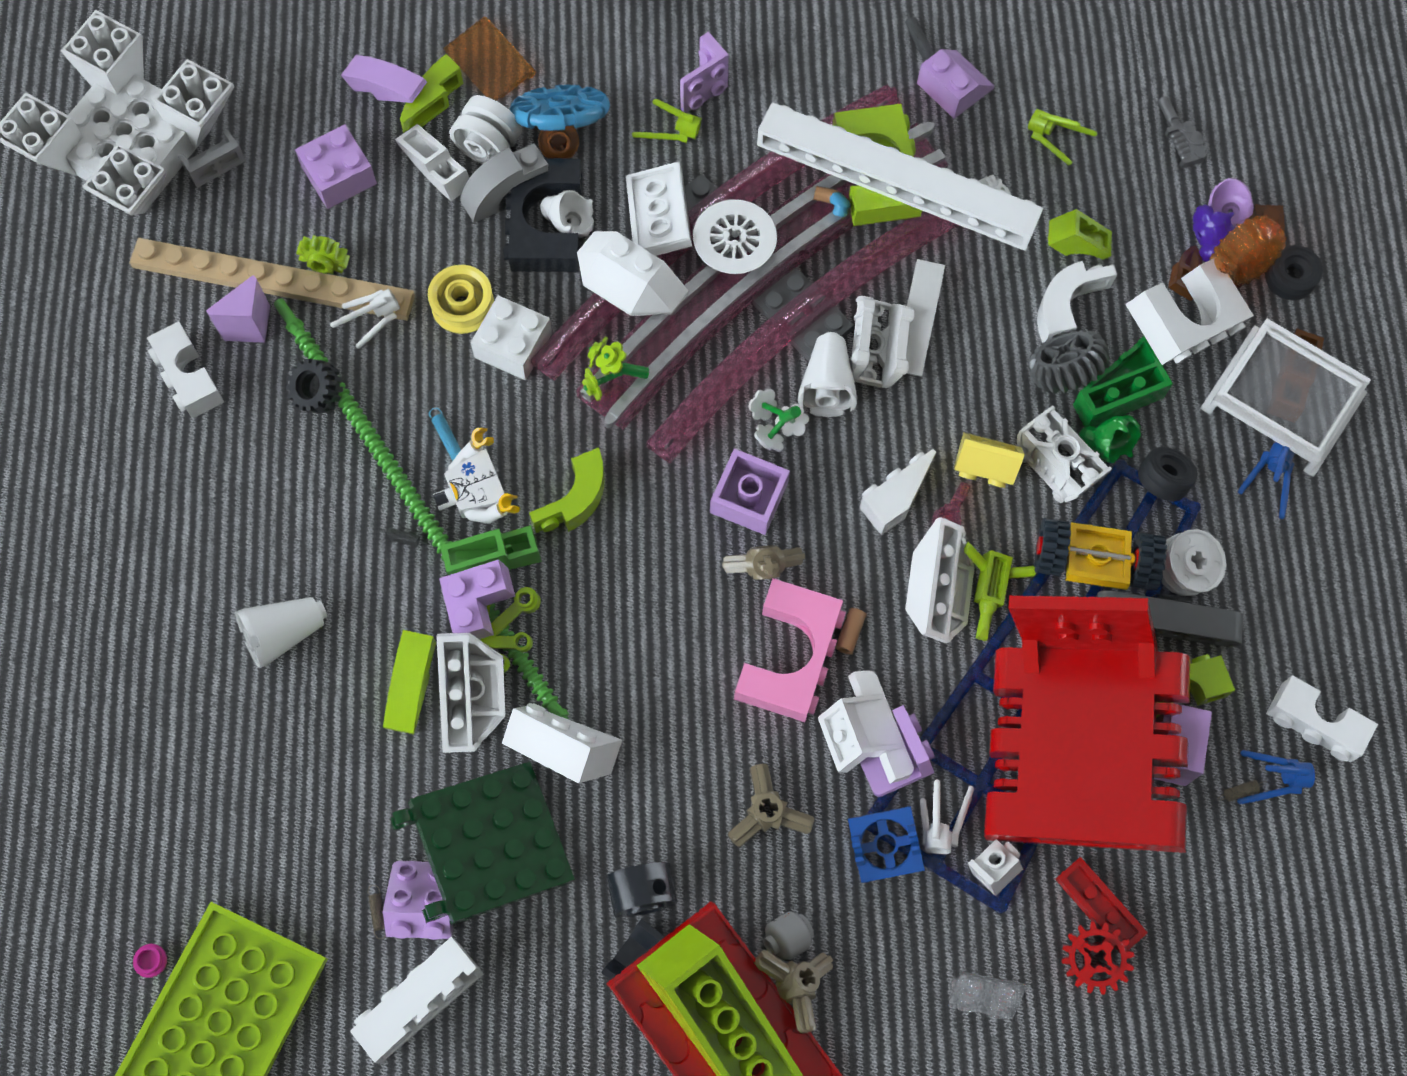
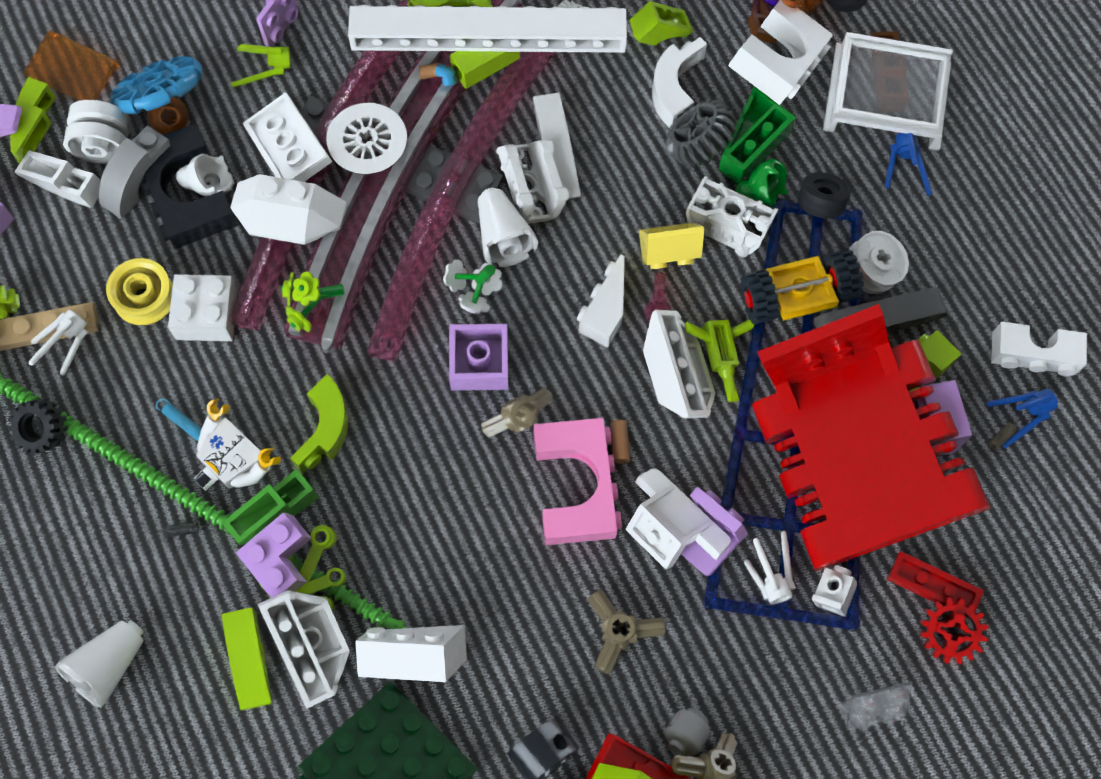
camera: 25 degrees left, 0 degrees up
(870, 872) = (764, 617): blue piece -> none

